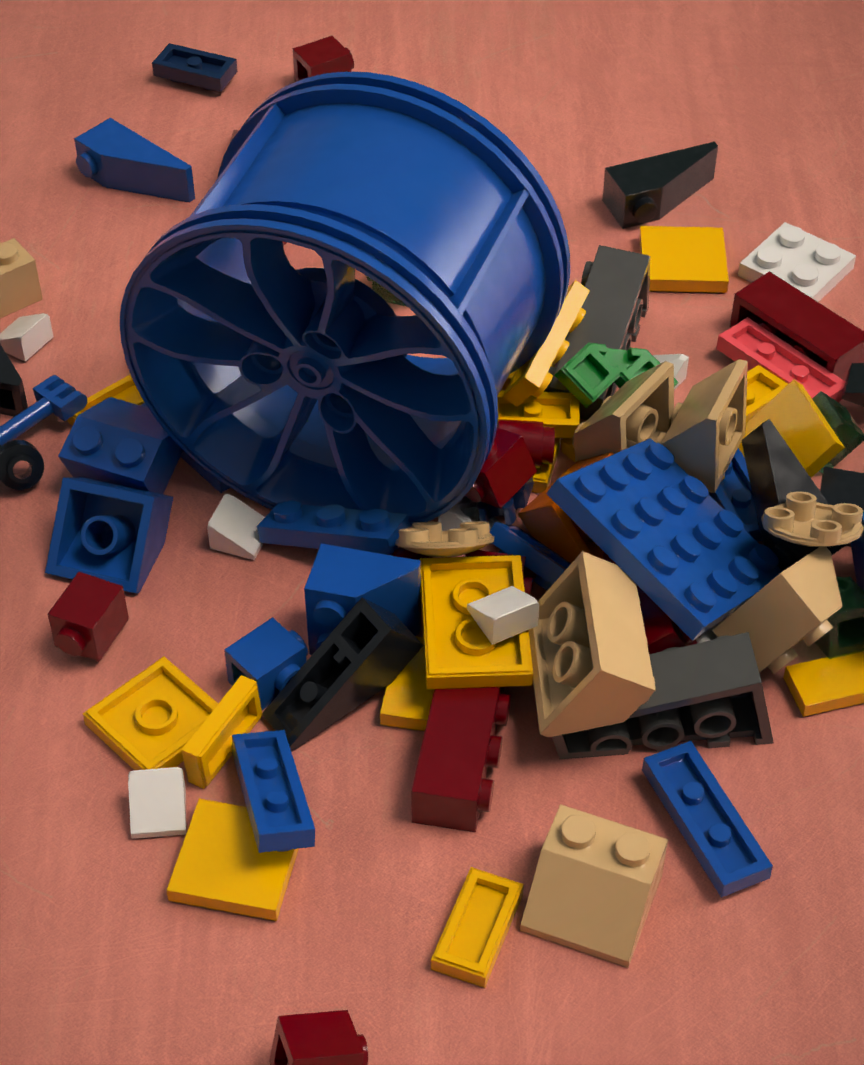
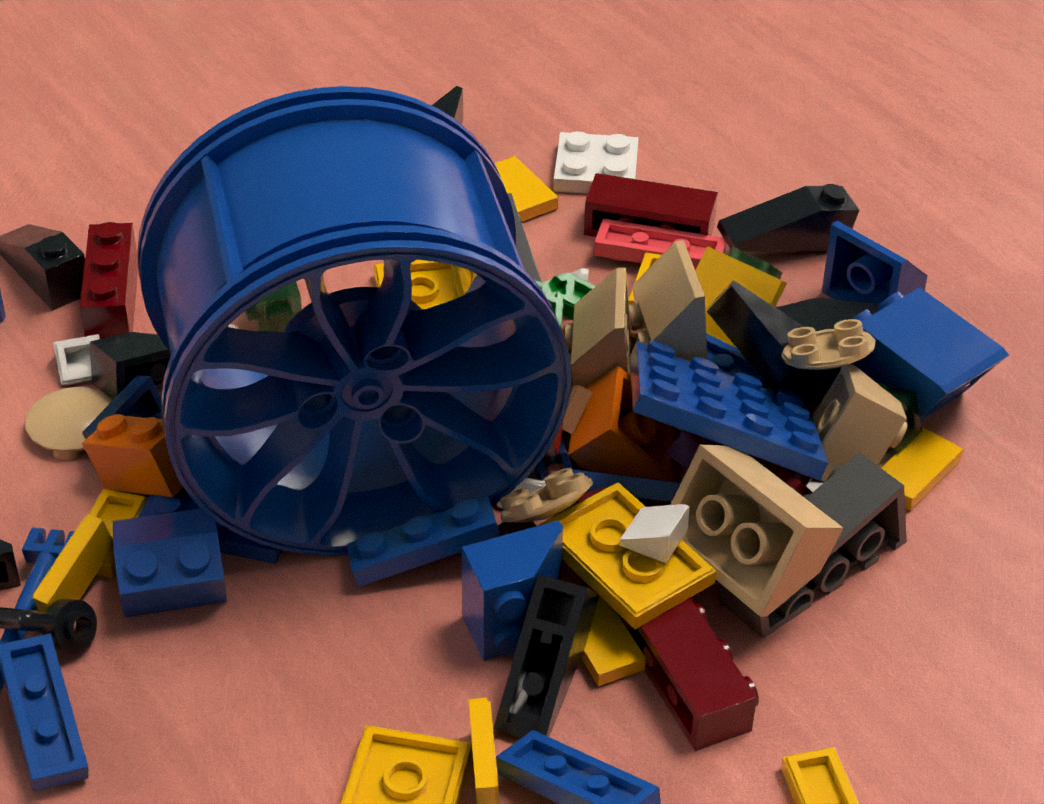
camera: 35 degrees left, 5 degrees down
(51, 421) = (76, 563): none -> yellow tile
(88, 616) = (273, 723): dark red brick -> none
(108, 532) = (217, 645): blue slope -> none
(235, 528) = (329, 585): white slope -> none
(268, 657) = (467, 673): blue brick -> none
(320, 58) = (33, 150): dark red brick -> none
(549, 473) = (577, 403): none -> medium nougat tile
(594, 885) = (891, 715): tan slope -> none
(707, 819) = (920, 621): blue plate -> none

